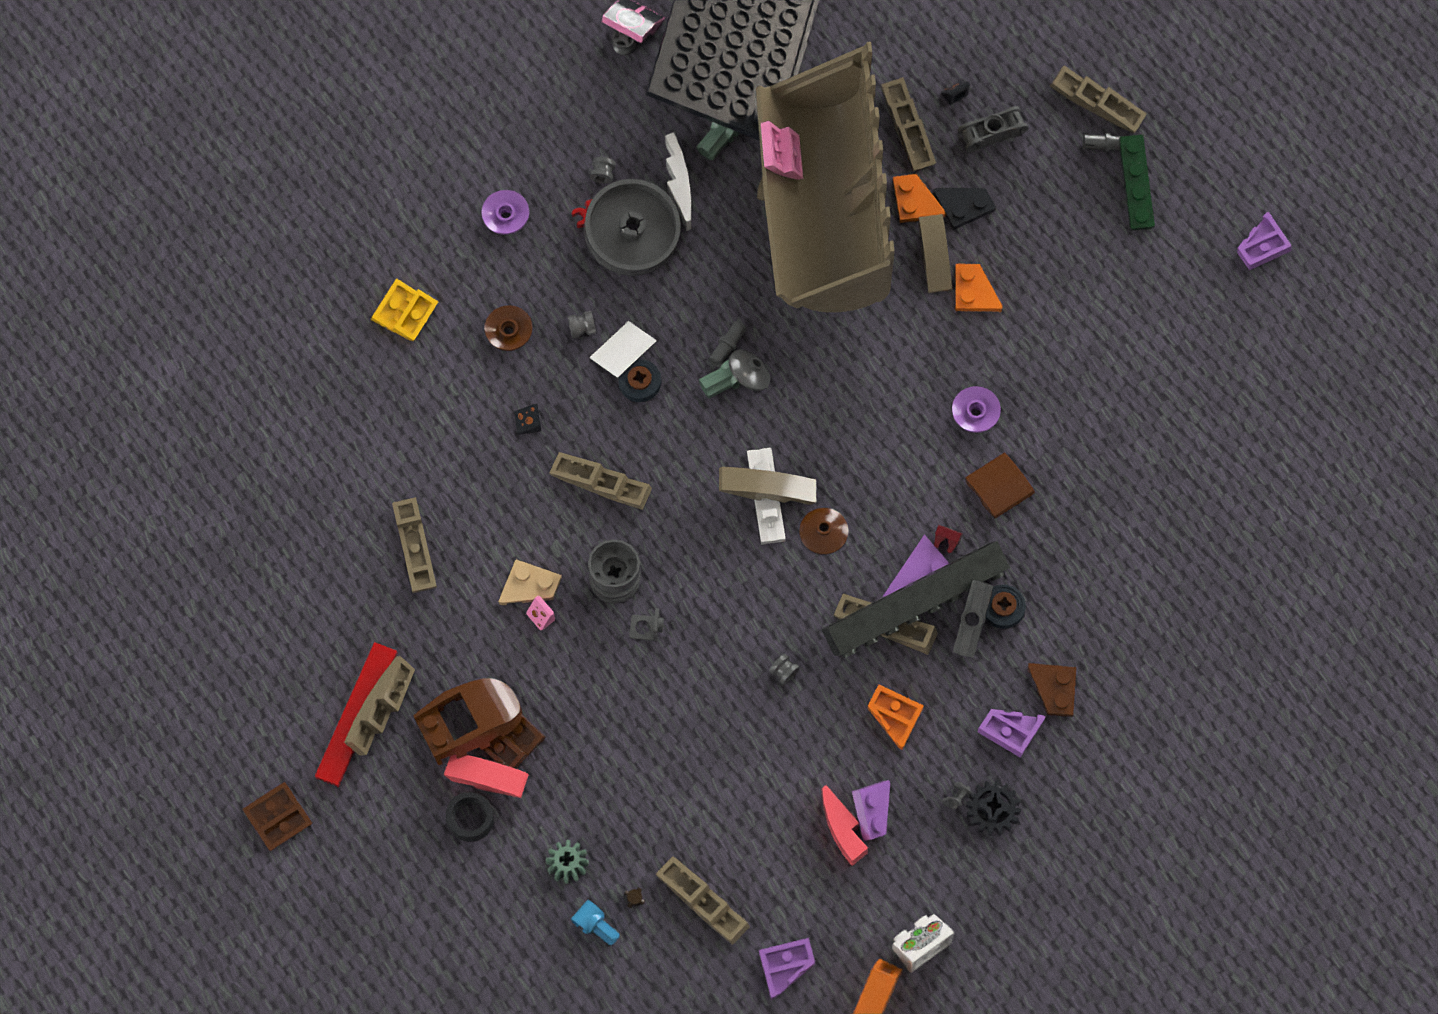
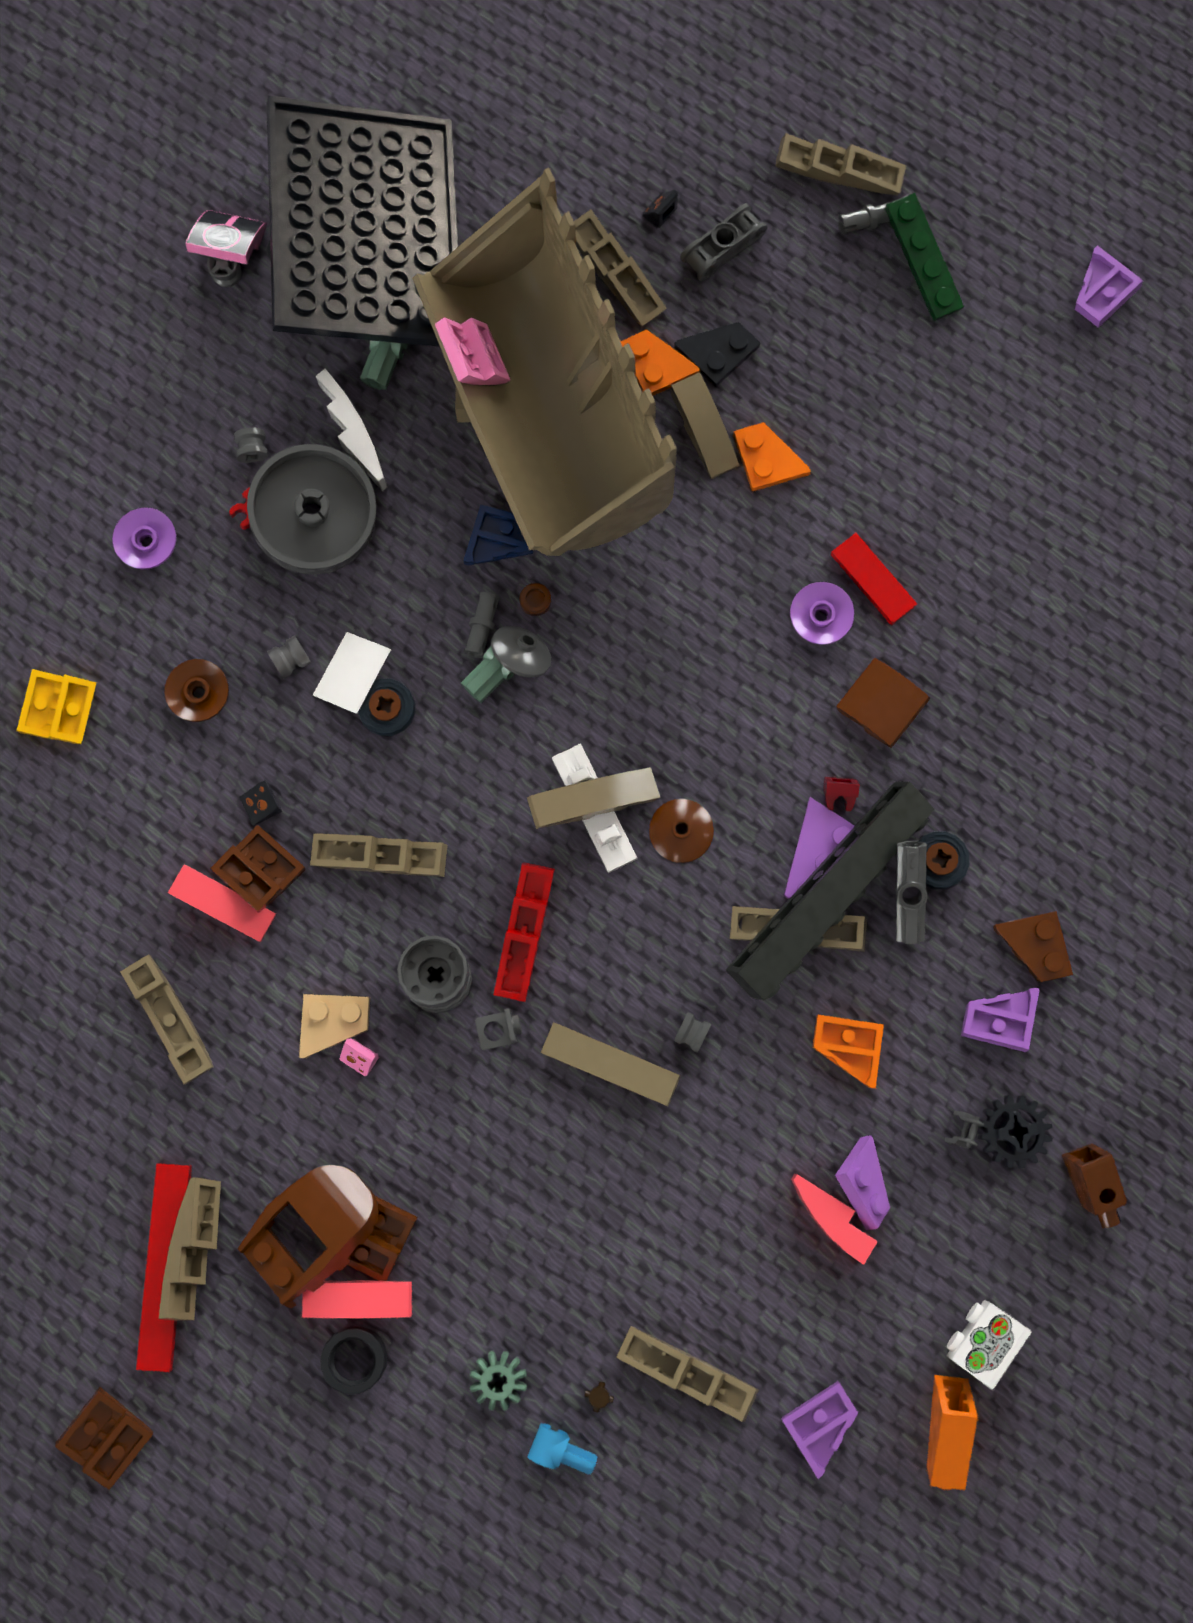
camera: 15 degrees left, 10 degrees up
(478, 478) = (220, 903): none -> coral slope
(512, 463) = (258, 869): none -> reddish brown slope
(686, 565) = (524, 932): none -> red slope
(718, 673) = (610, 1064): none -> dark tan slope
(756, 287) = (495, 537): none -> dark blue wing
(772, 338) = (535, 599): none -> reddish brown tile
(1023, 398) = (873, 579): none -> red tile
(1039, 848) = (1096, 1182): none -> reddish brown torso

